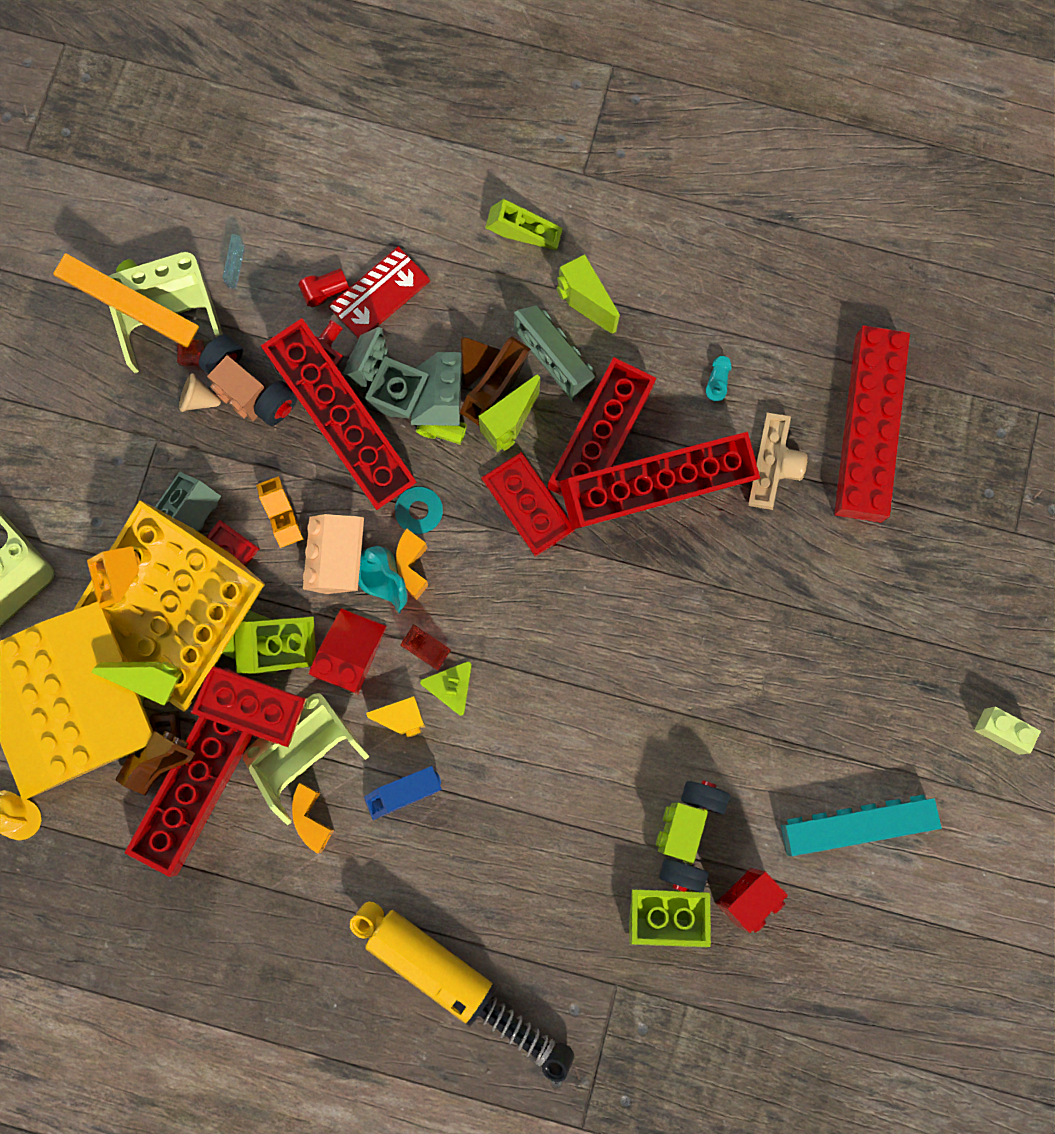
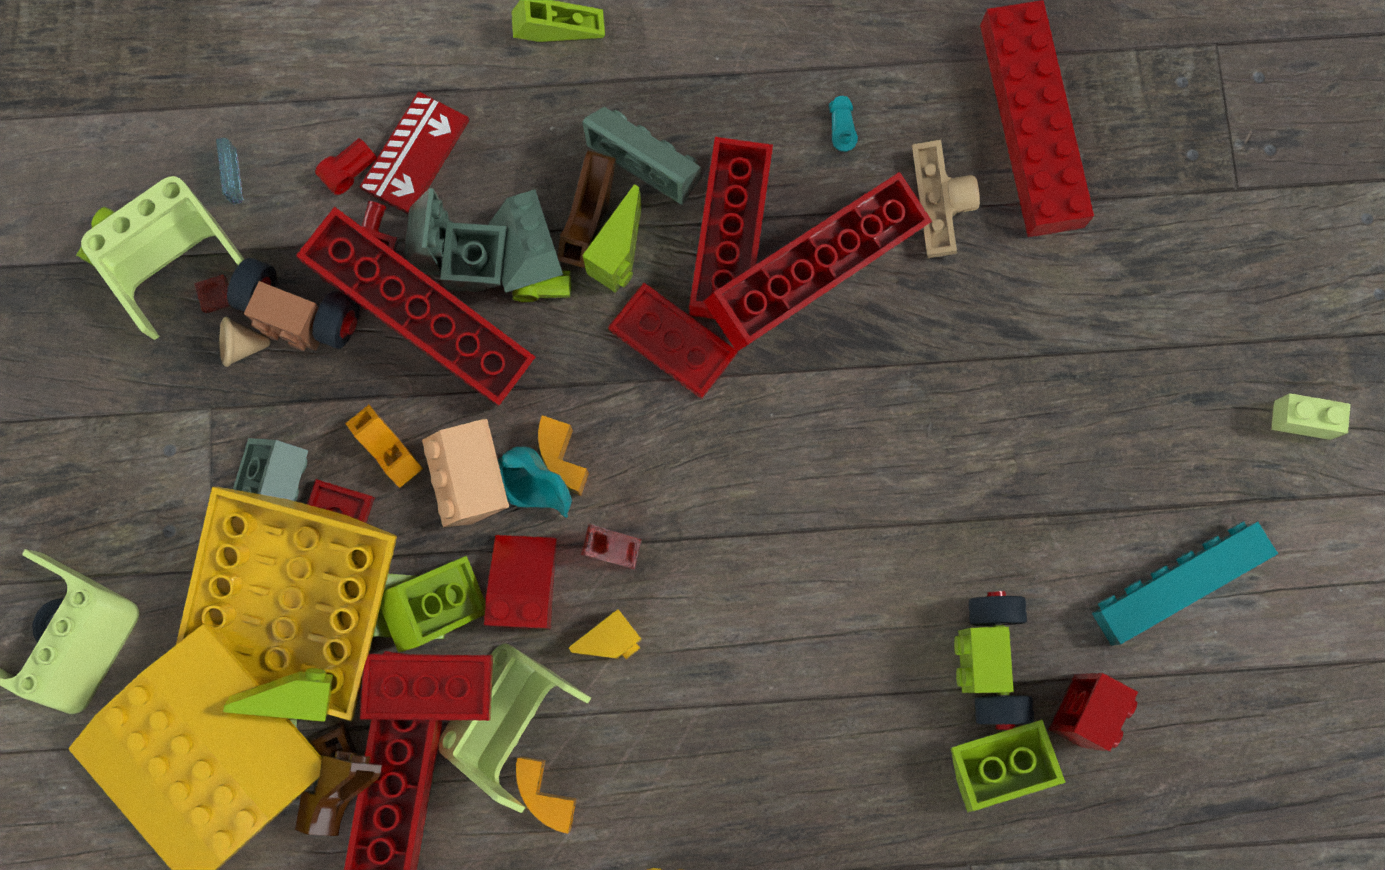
camera: 15 degrees left, 0 degrees up
(113, 574) = (209, 585): light orange slope -> none
(126, 300) = (114, 256): light orange tile -> none
(402, 792) = (643, 726): blue slope -> none
(412, 495) = (541, 371): teal piece -> none
(450, 686) = (655, 583): lime piece -> none
(475, 359) = (554, 192): reddish brown piece -> none
(586, 293) = (658, 74): lime slope -> none

